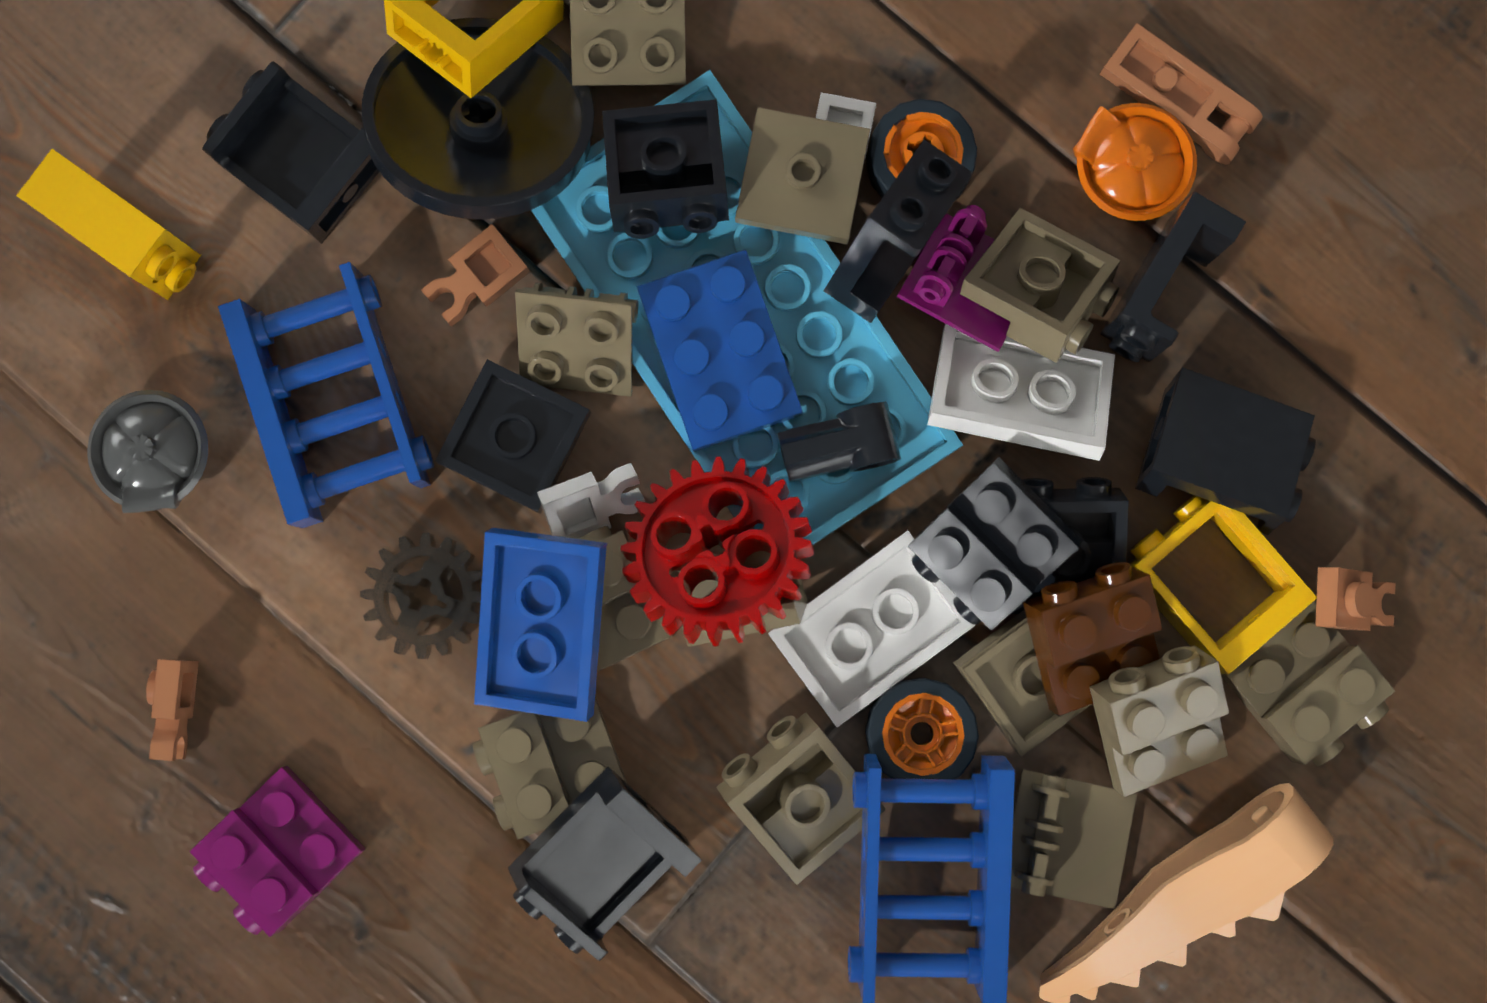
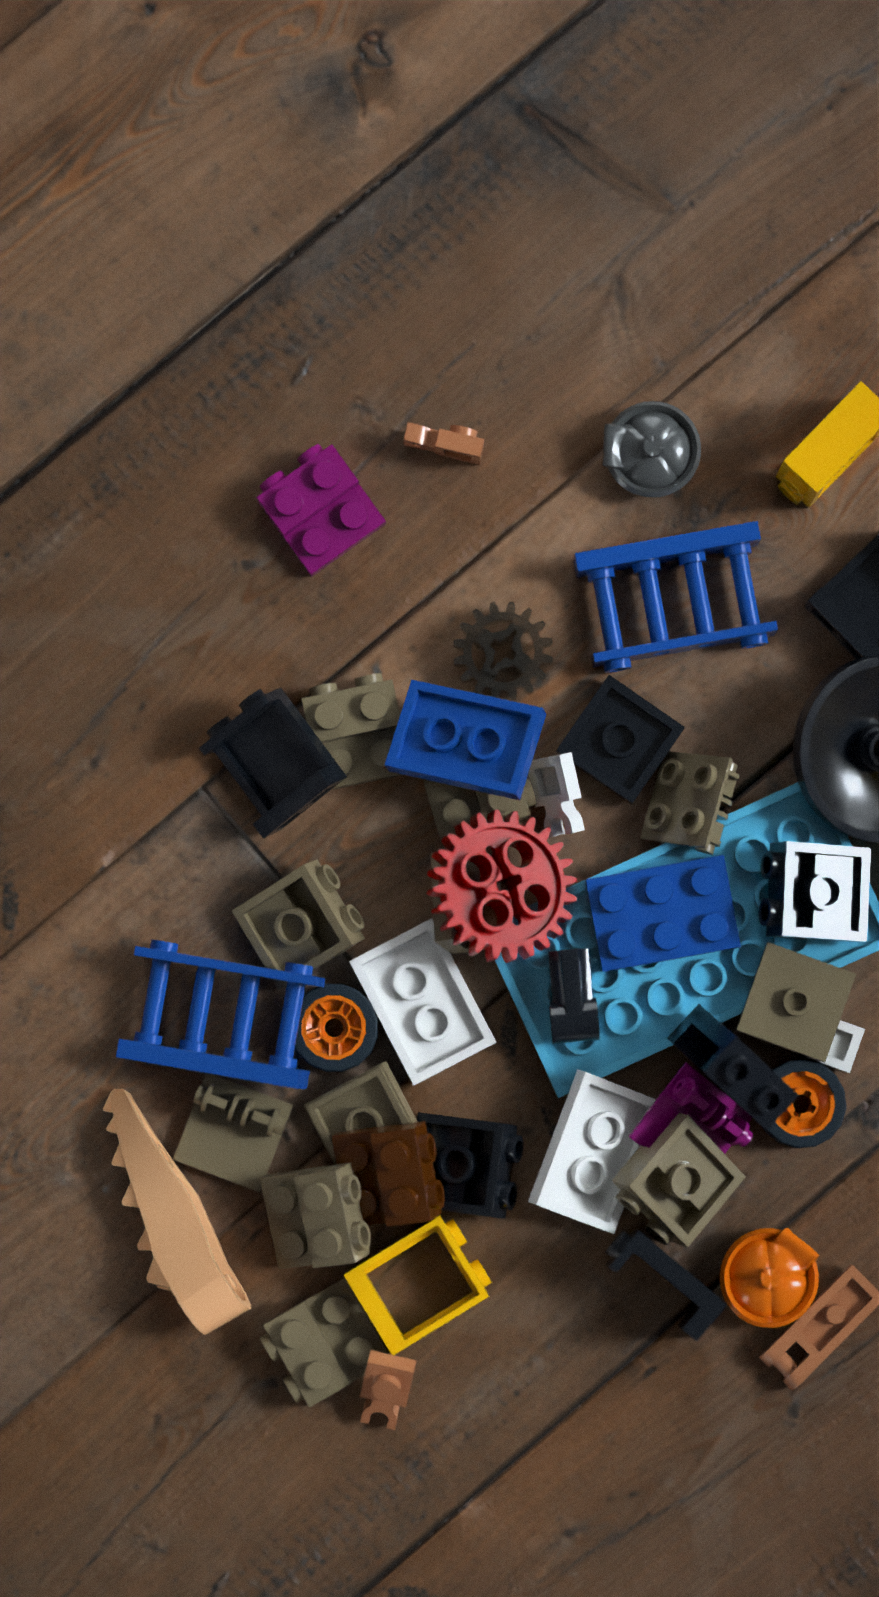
camera: 95 degrees right, 0 degrees up
(483, 269) = (759, 734): nougat plate -> none
(993, 545) = (472, 1103): plate -> none
(1228, 448) = (521, 1309): black panel -> none

